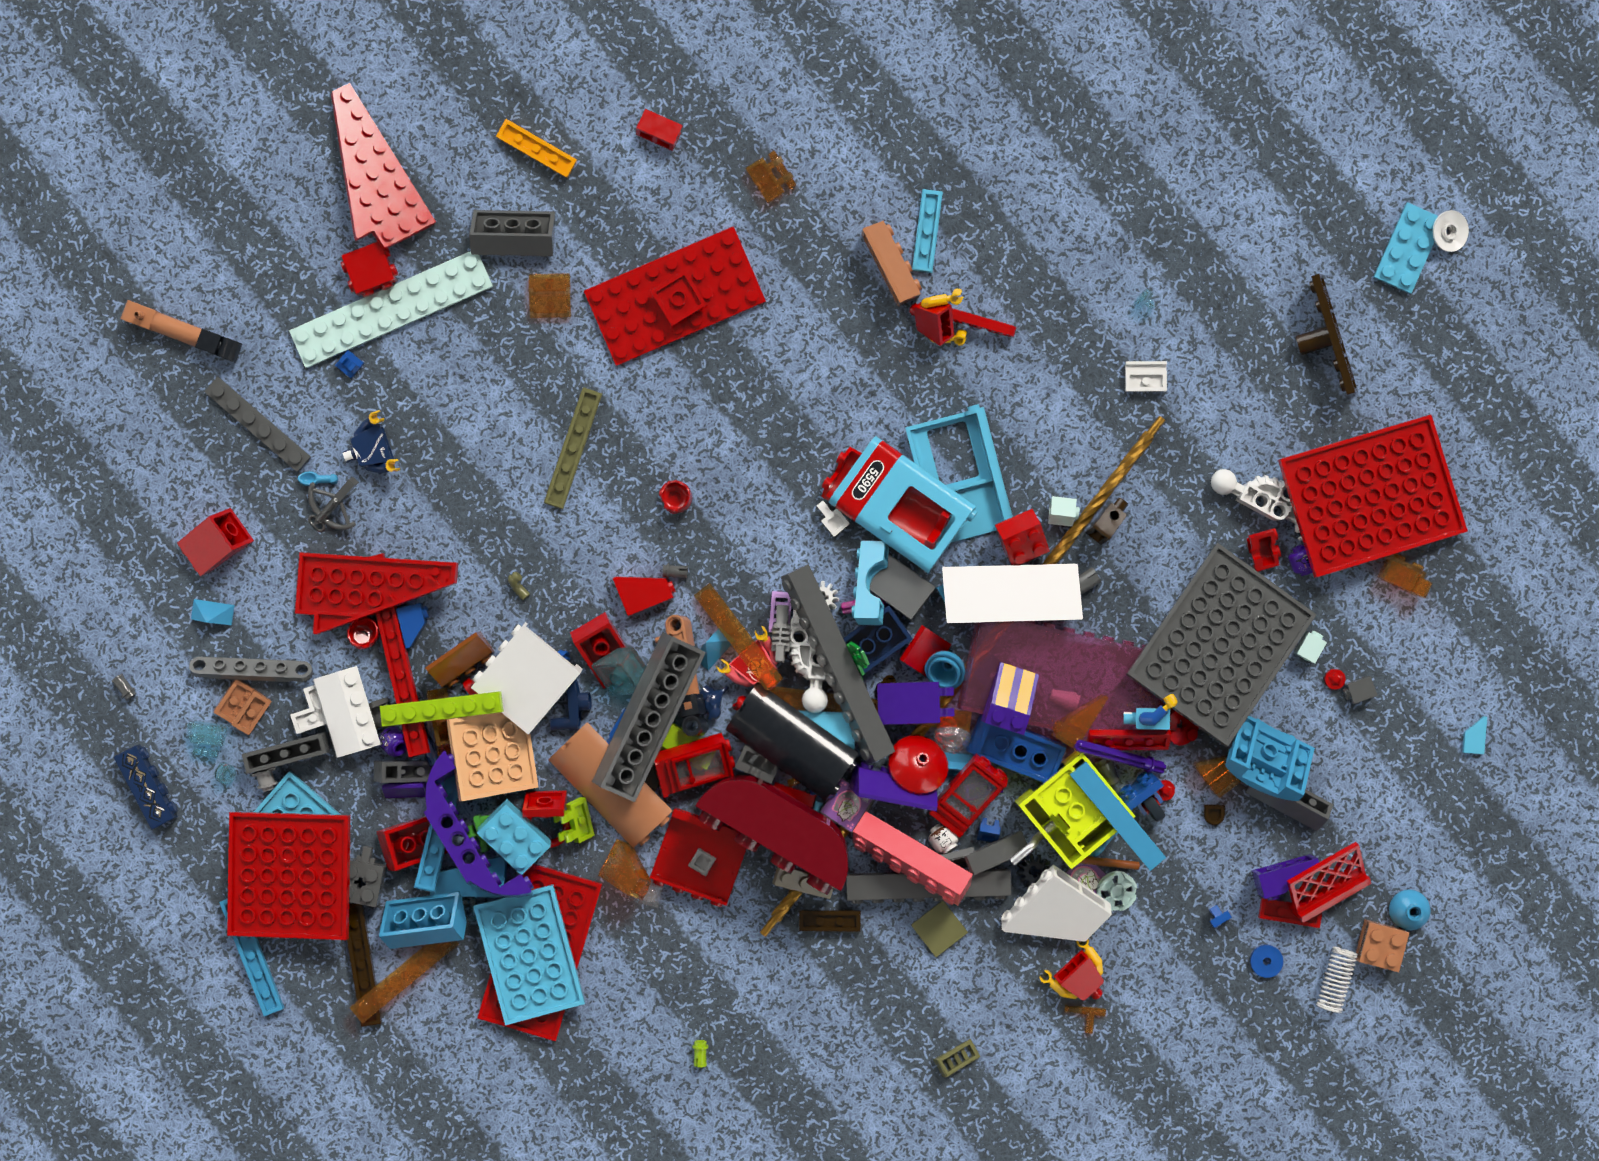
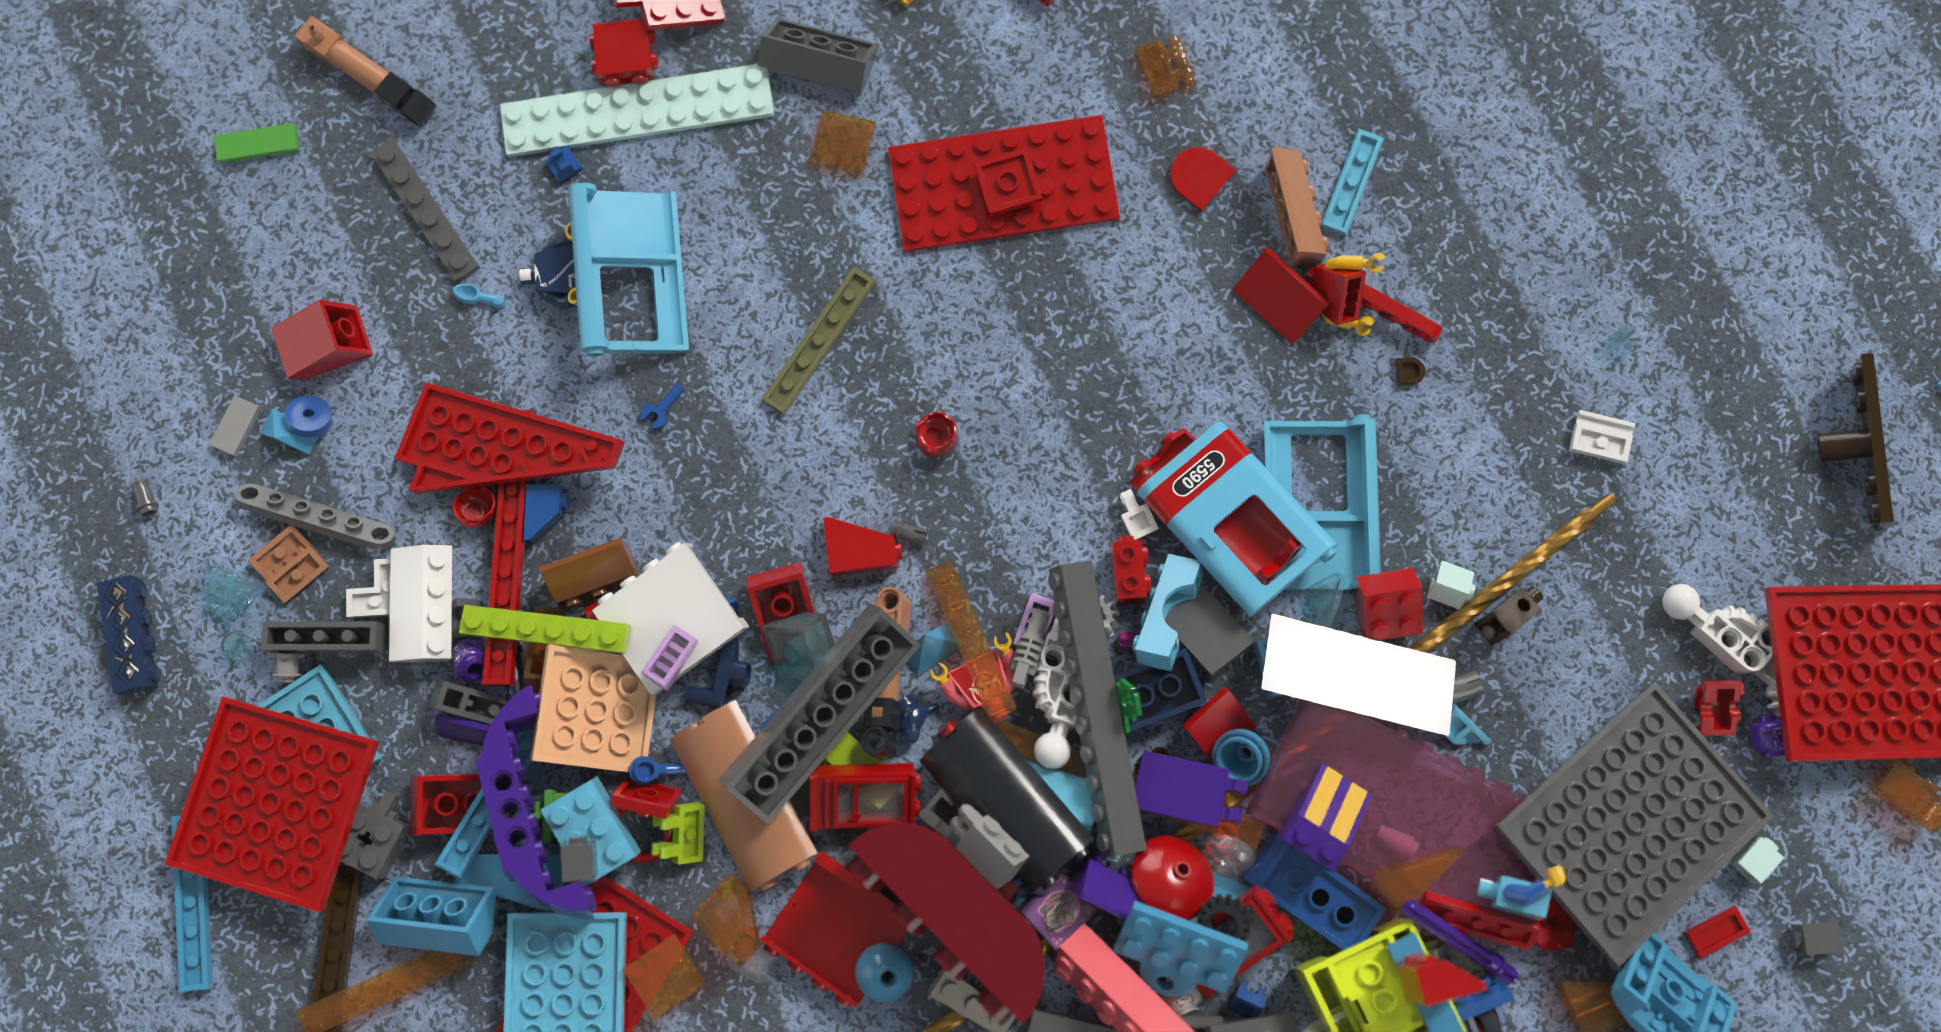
camera: 15 degrees right, 10 degrees down
(118, 405) = (257, 143): none -> bright green tile
(171, 618) = (235, 426): none -> light grey tile
(223, 607) = (308, 426): none -> blue piece
(337, 499) = (501, 321): dark grey piece -> none
(413, 406) = (627, 233): none -> medium azure piece
(474, 526) = (661, 408): none -> blue bar
(514, 859) = (579, 859): none -> dark grey brick
(516, 586) = (694, 499): olive arm -> none
(537, 785) = (644, 770): none -> blue plate
(540, 716) = (672, 673): none -> lavender slope
(591, 919) = (664, 976): none -> clear orange slope
(702, 861) = (839, 937): light grey tile -> none
(733, 870) = (874, 962): none -> dark azure piece
(787, 777) = (987, 846): none -> light grey hinge
(815, 254) = (1199, 175): none -> red tile
(835, 561) = (1127, 569): none -> red brick
(895, 332) = (1280, 296): none -> red tile
(933, 814) = (1178, 951): none -> dark azure plate
(956, 798) = (1226, 905): none -> black tyre
(977, 542) = (1325, 597): none -> clear light blue slope
(1000, 362) = (1409, 371): none -> dark brown tile
(1093, 609) = (1464, 730): none -> medium azure tile
(1103, 792) = (1434, 980): none -> red slope
(1167, 790) = (1513, 1010): red tile -> none
(1293, 702) = (1716, 931): none -> red tile
(1334, 679) = (1781, 914): red tile -> none

